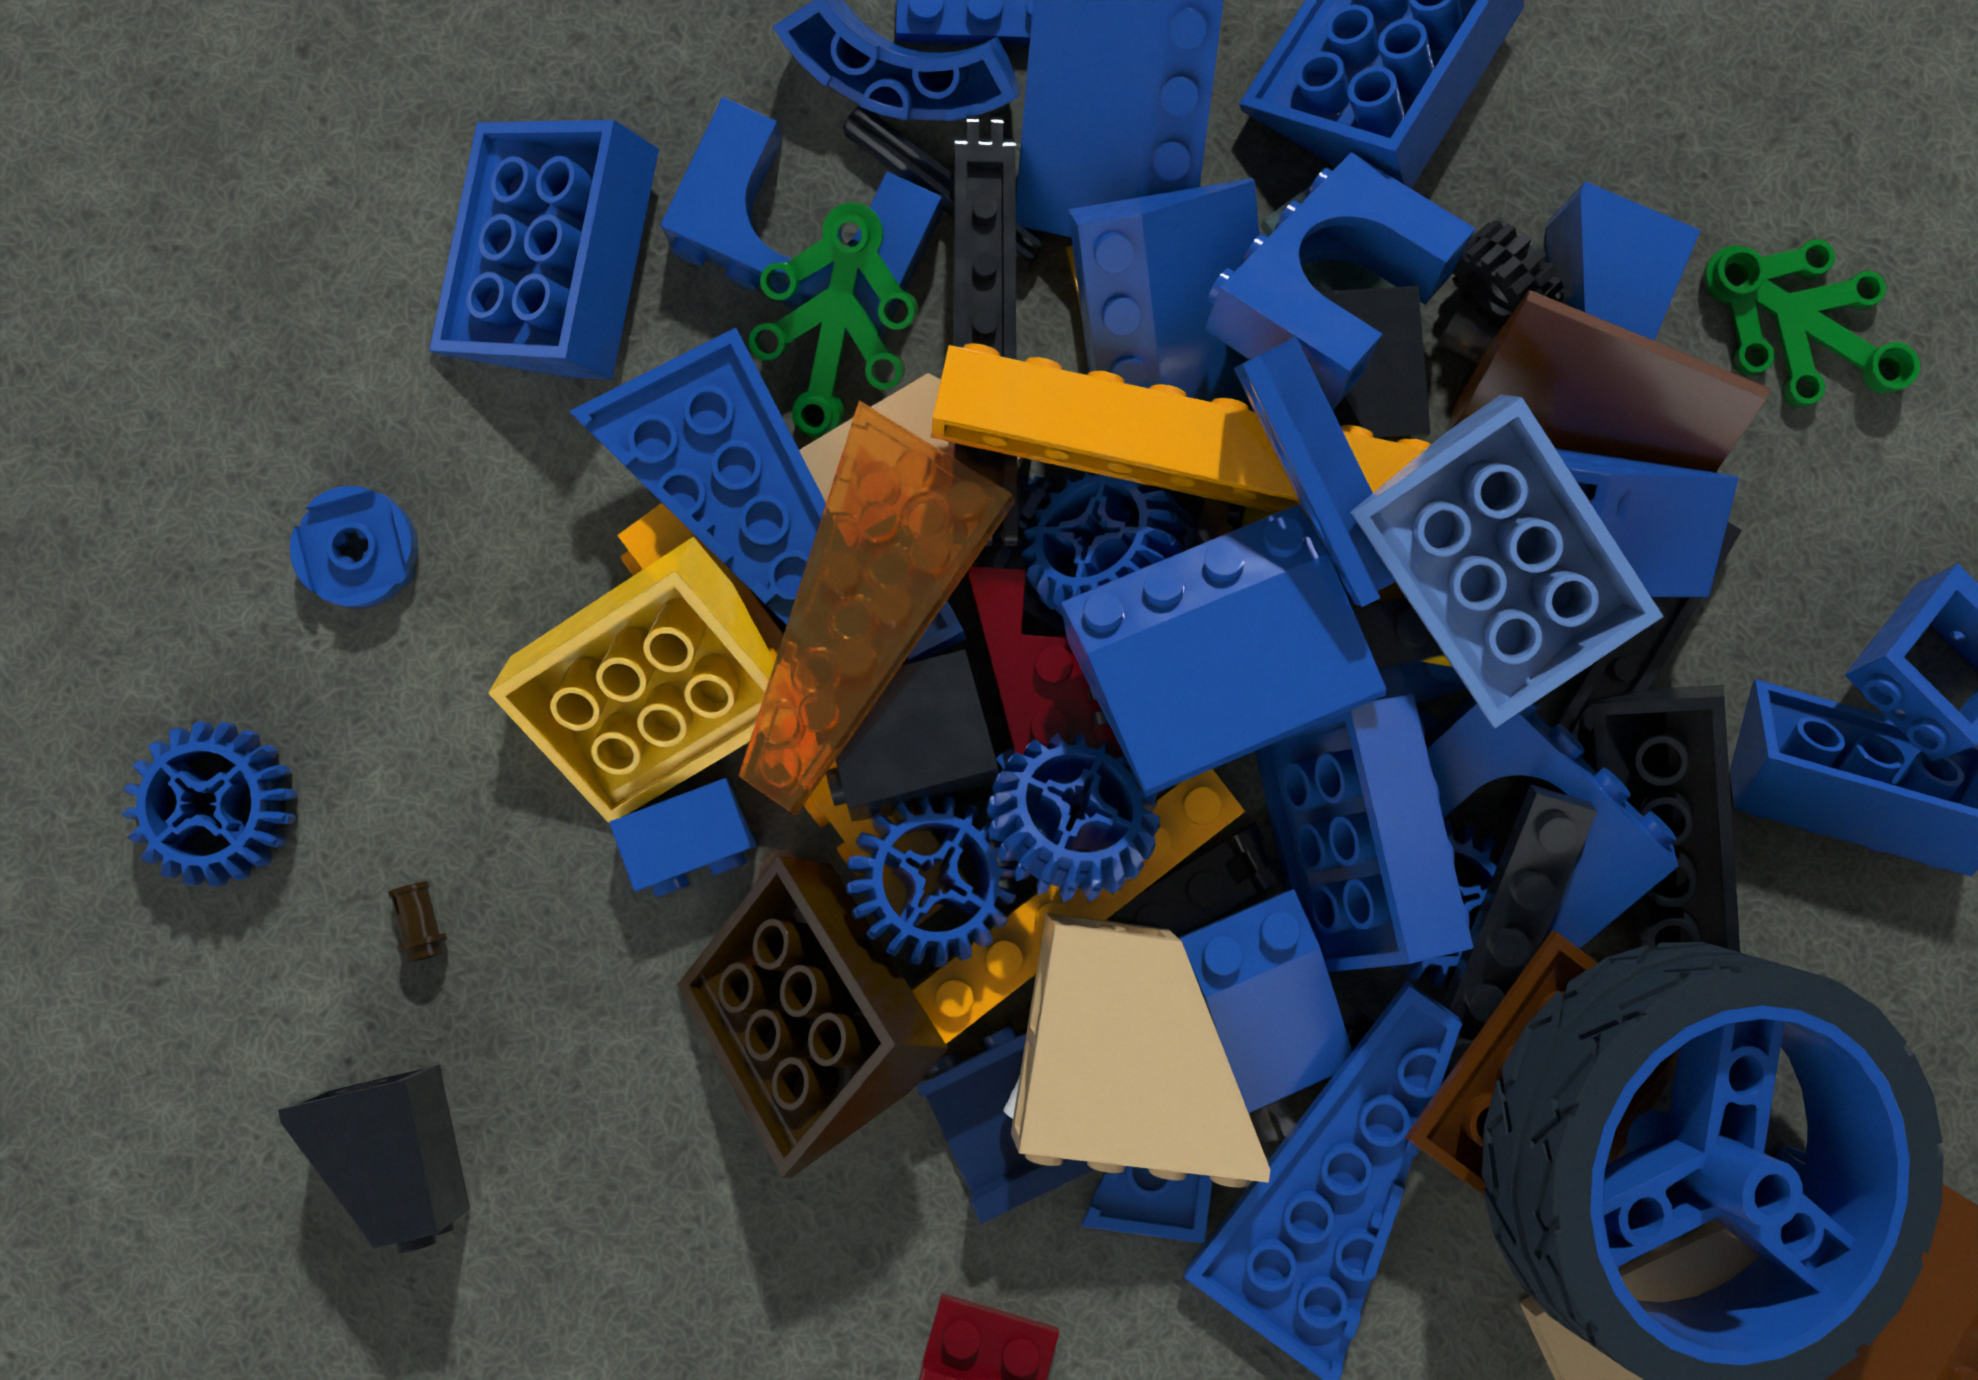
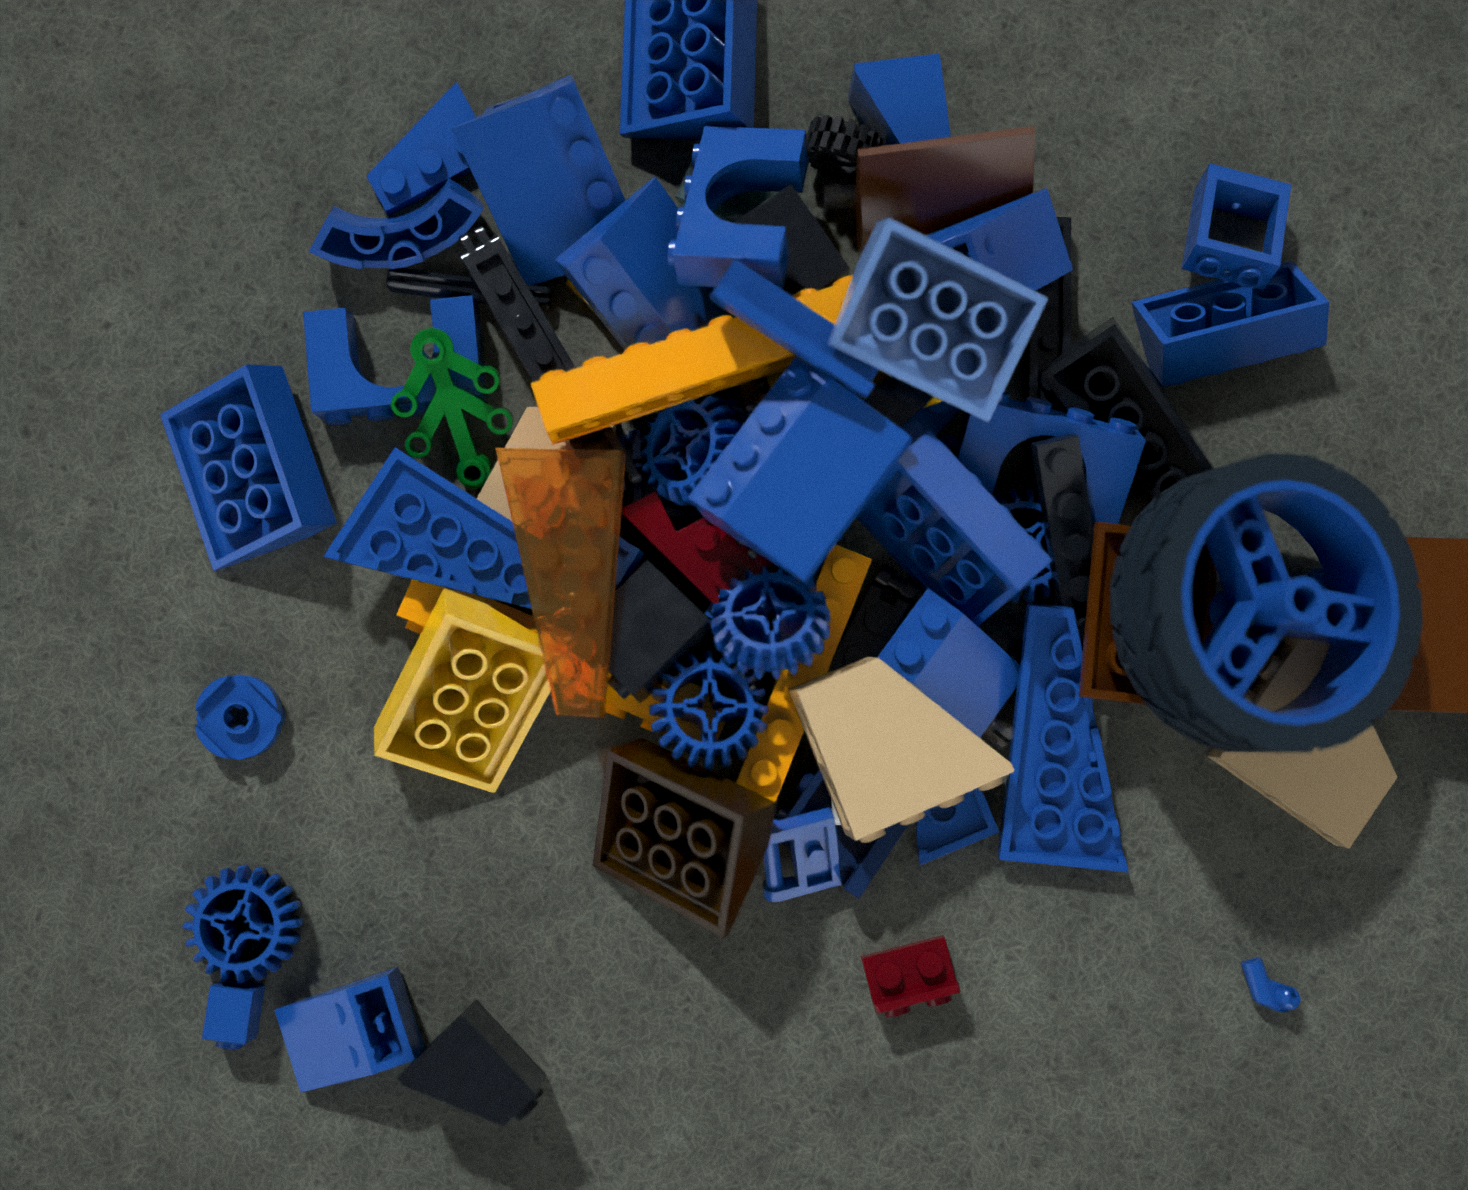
camera: 25 degrees left, 0 degrees up
(133, 907) = (233, 1013): none -> blue brick
(263, 1014) = (350, 1031): none -> blue slope
(417, 922) = (412, 921): dark brown pin -> none
(684, 836) = (544, 773): blue brick -> none
(955, 1137) = (813, 856): none -> blue plate
(1799, 317) = (1031, 68): green plant -> none

